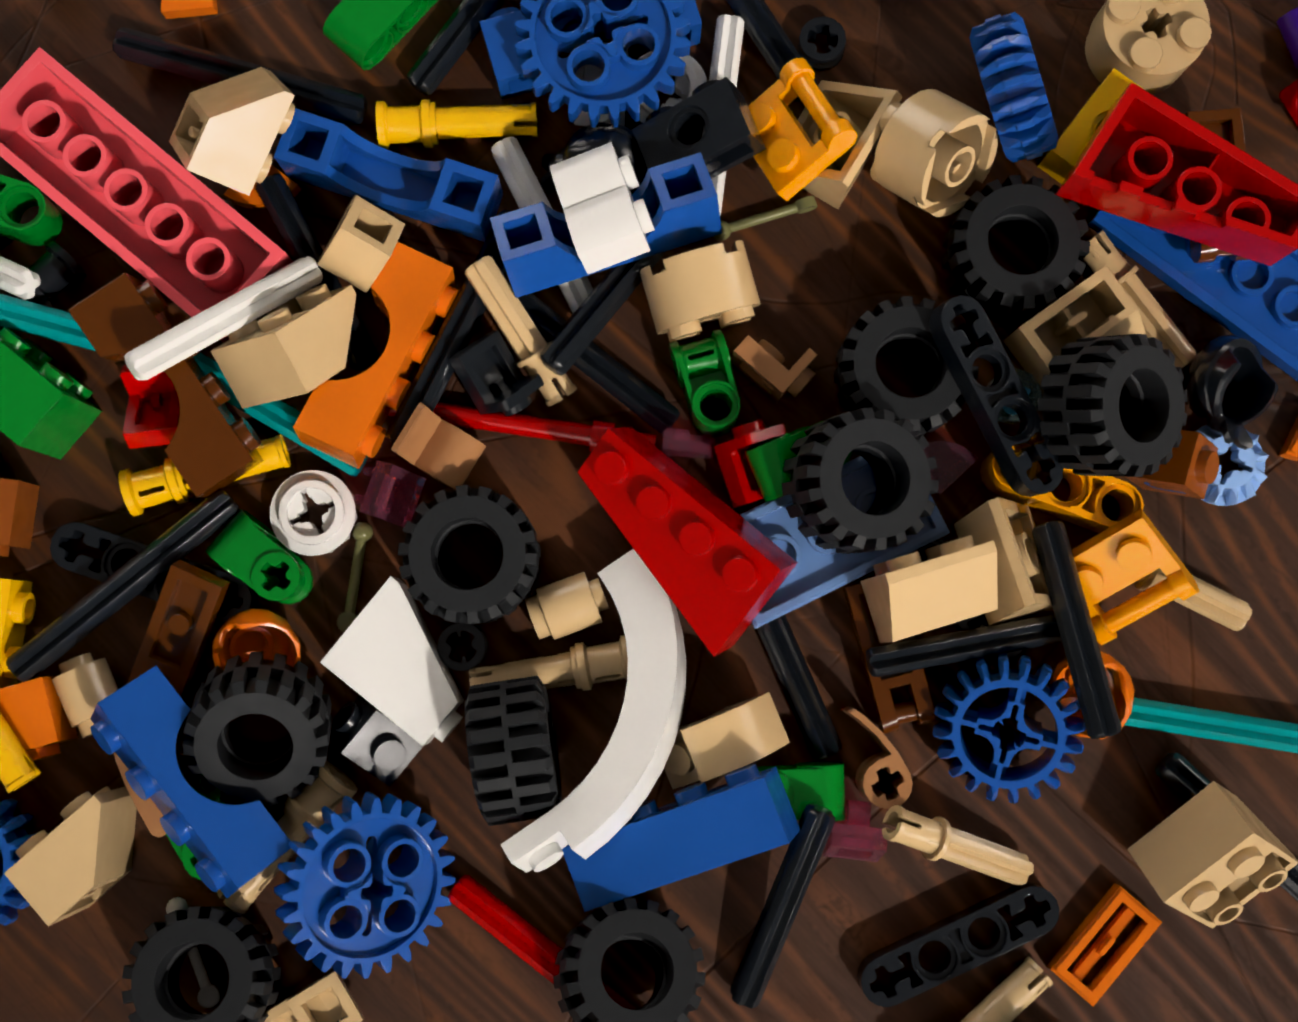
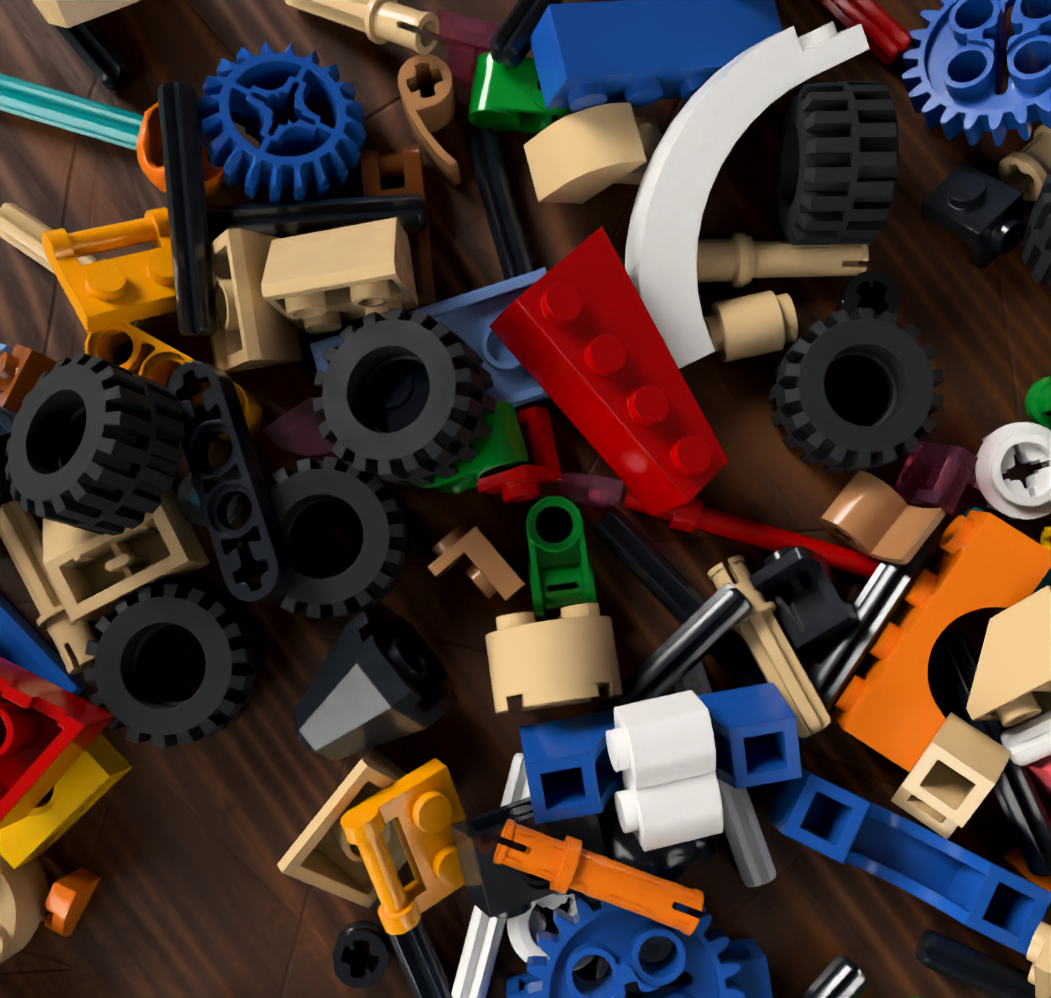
camera: 165 degrees left, 0 degrees up
(362, 533) = (989, 350): olive hinge -> none
(396, 665) = (947, 280): white slope -> none
(430, 123) = (846, 915): yellow pin -> none
(646, 117) = (598, 877): none -> orange pin
(800, 206) = (510, 739): olive hinge -> none
(845, 251) = (372, 688): none -> black cone
(933, 151) = (250, 792): tan brick -> none
(1014, 87) = (138, 861): blue gear -> none
(1066, 53) = (68, 900): none -> orange tile

